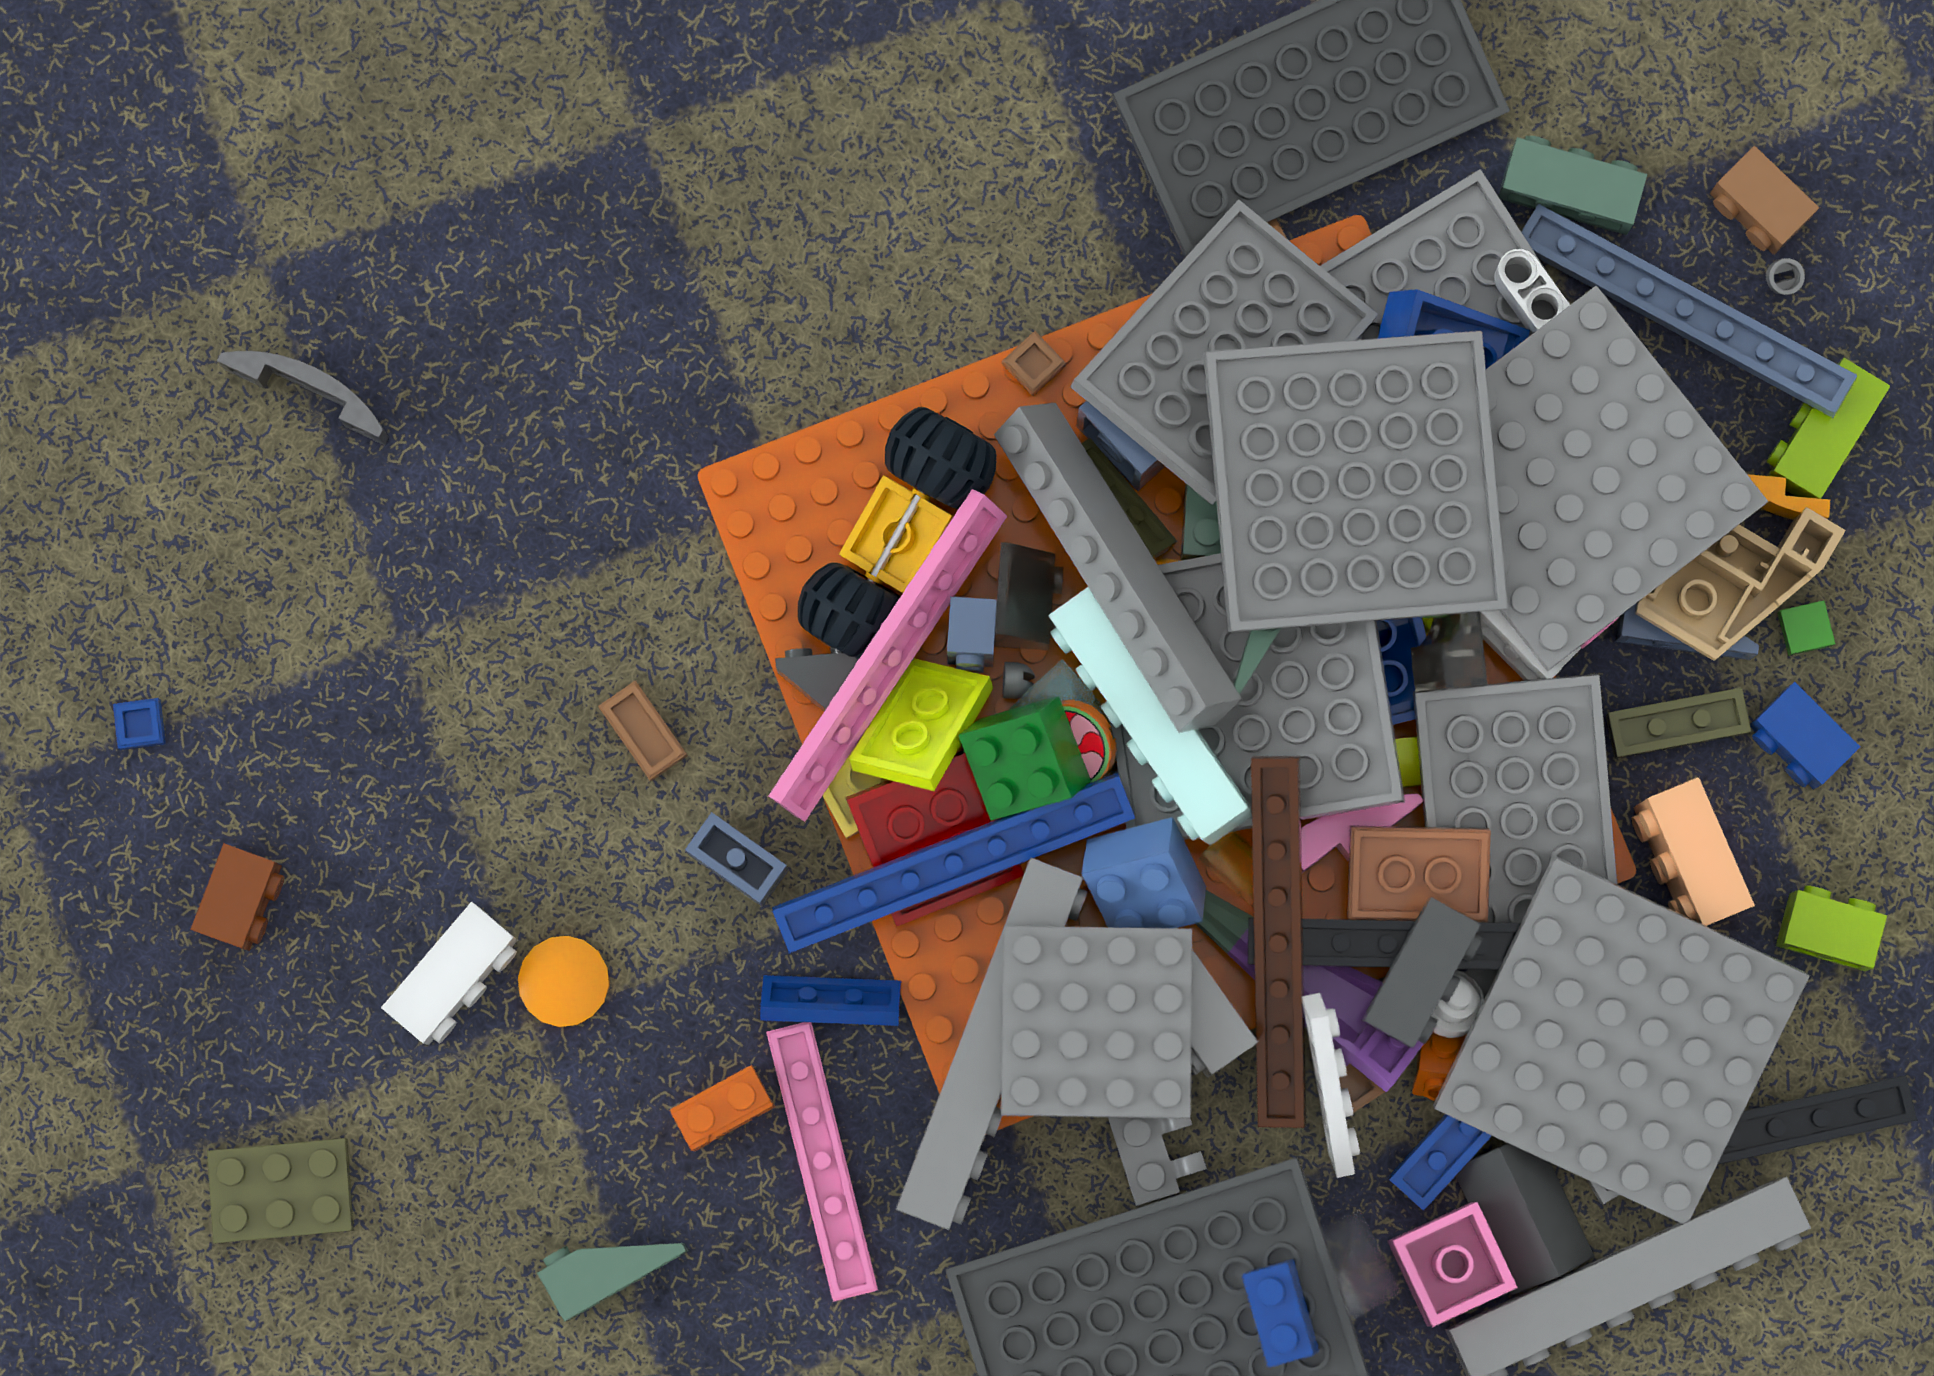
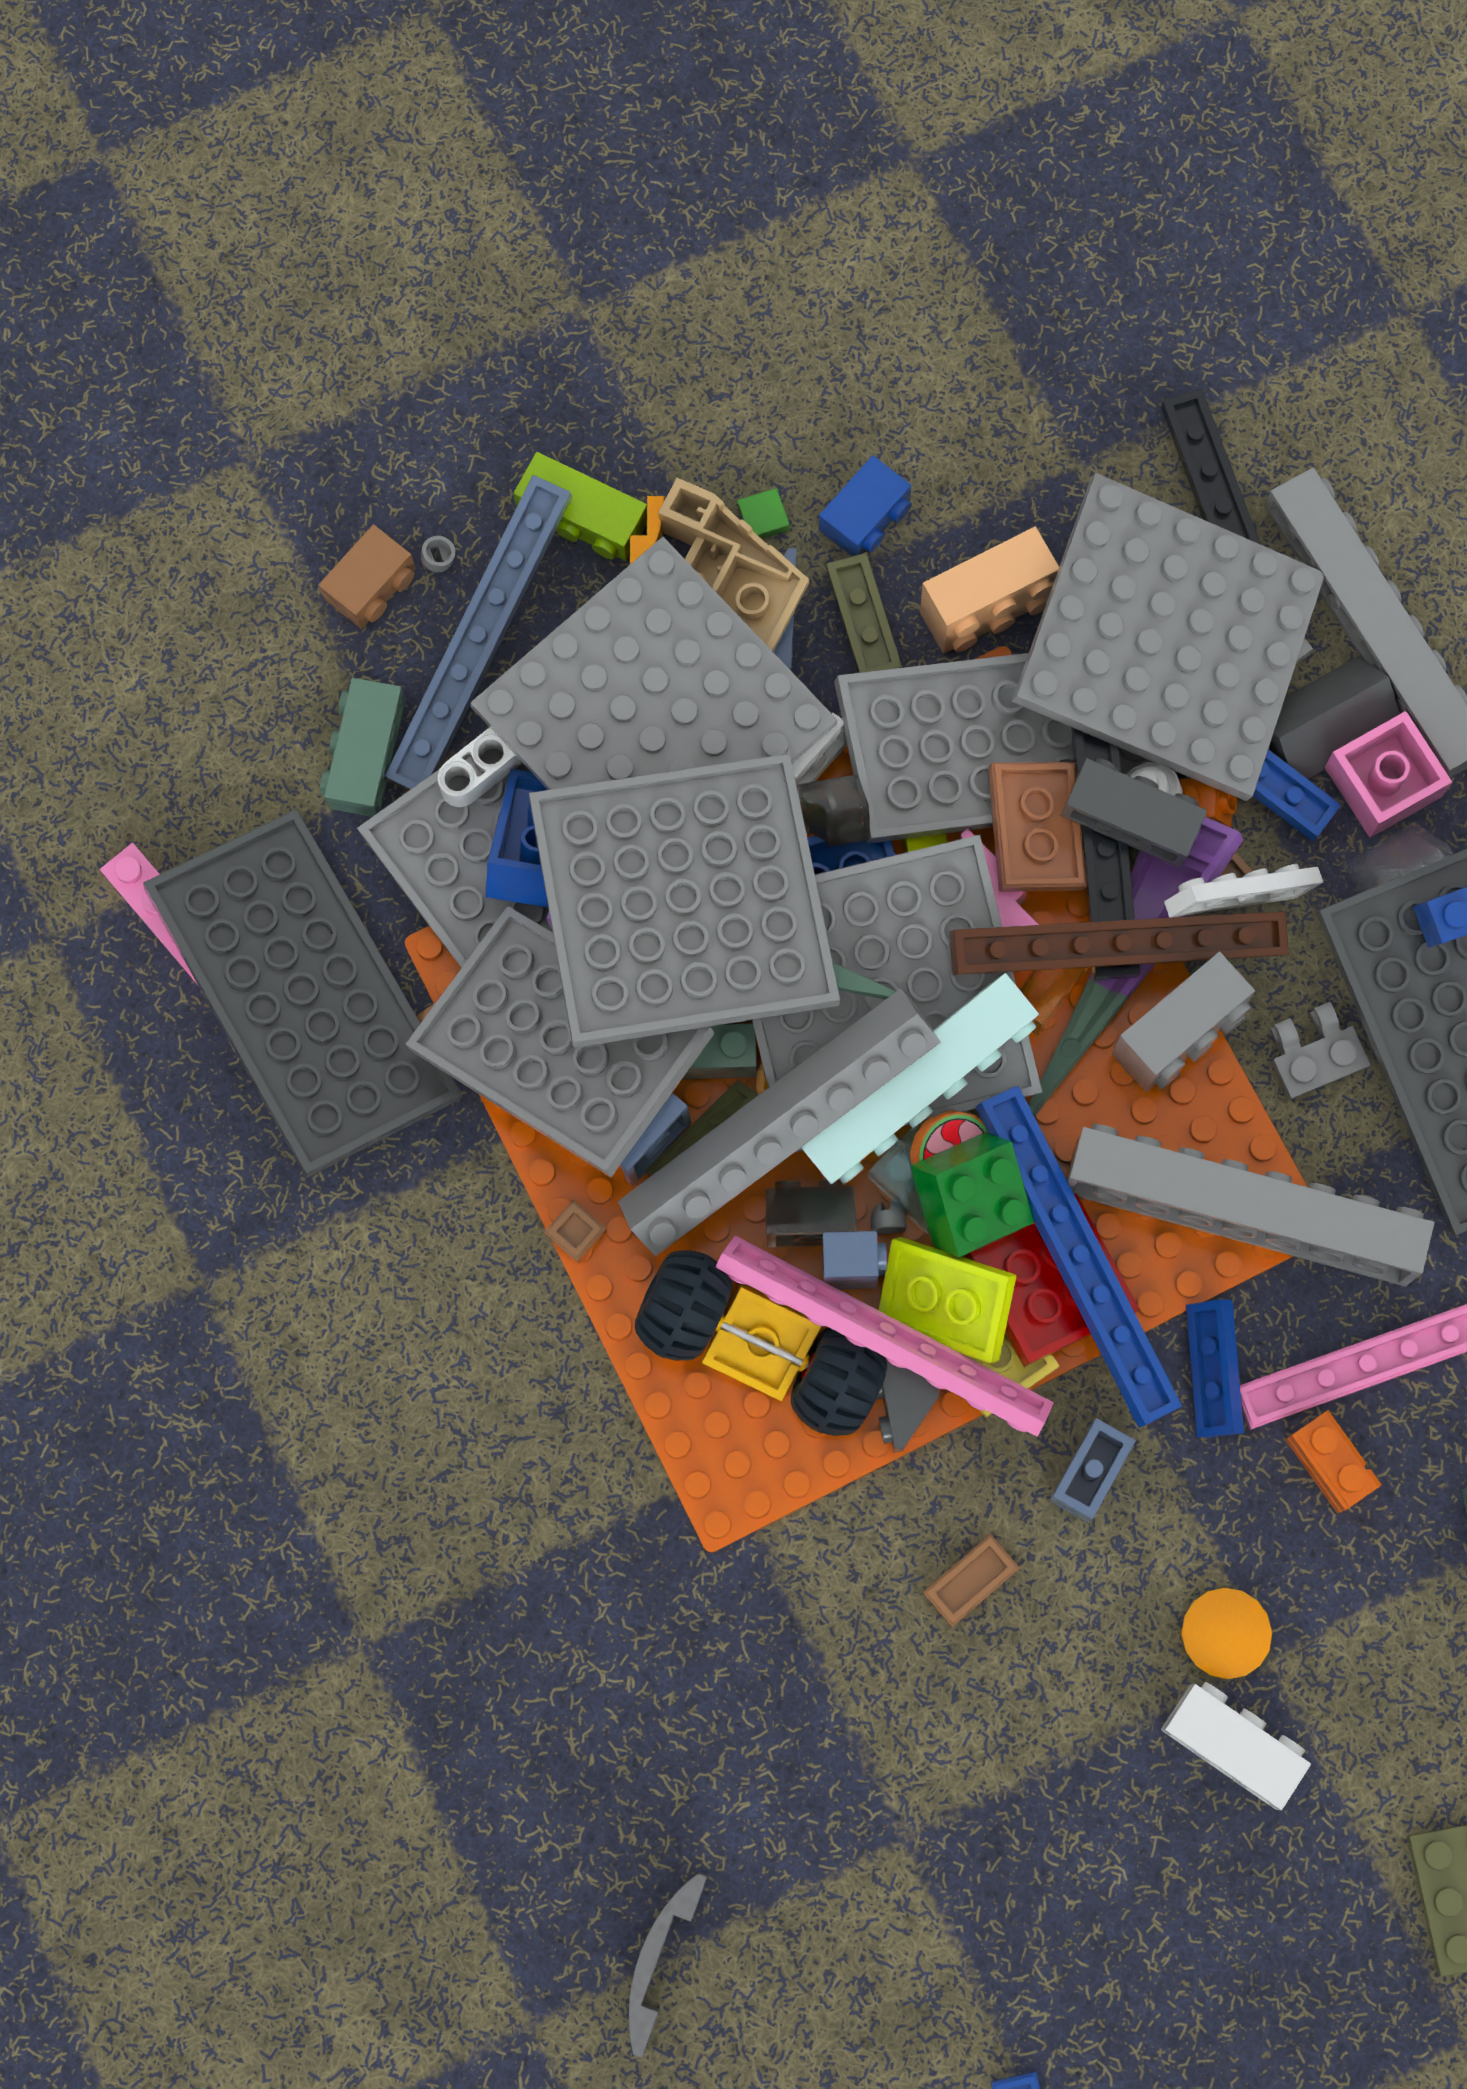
camera: 90 degrees left, 5 degrees down
(238, 898) = (1186, 1973): dark orange brick -> none
(1096, 1022) = (1221, 1100): light grey plate -> none
(1144, 877) = (1074, 1074): medium blue brick -> none
(1832, 929) = (1039, 472): lime brick -> none

